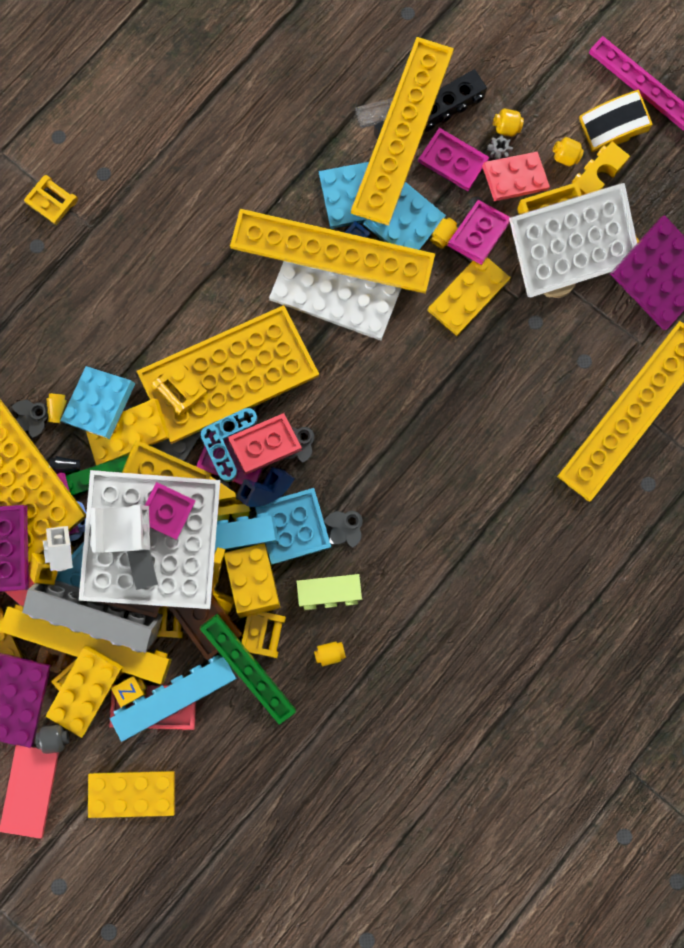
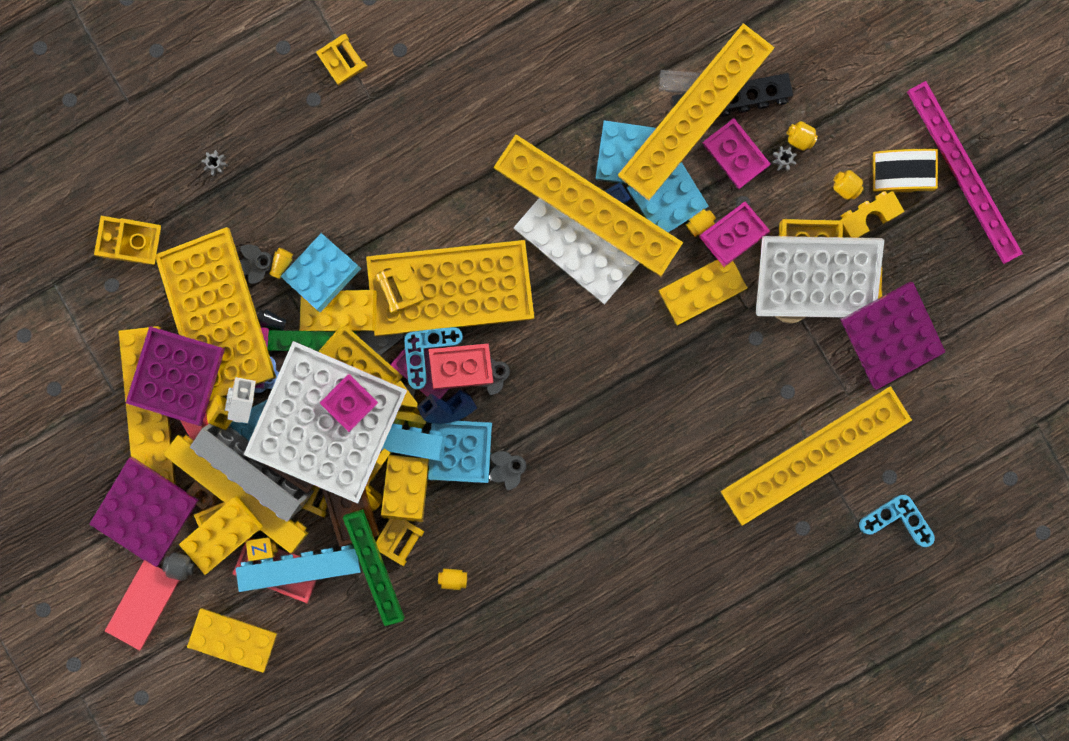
camera: 20 degrees right, 5 degrees up
(120, 529) = (301, 405): white panel -> none
(142, 568) = (310, 444): dark grey slope -> none
(329, 591) = (471, 523): yellowish green brick -> none
(515, 176) = (789, 191): coral plate -> none

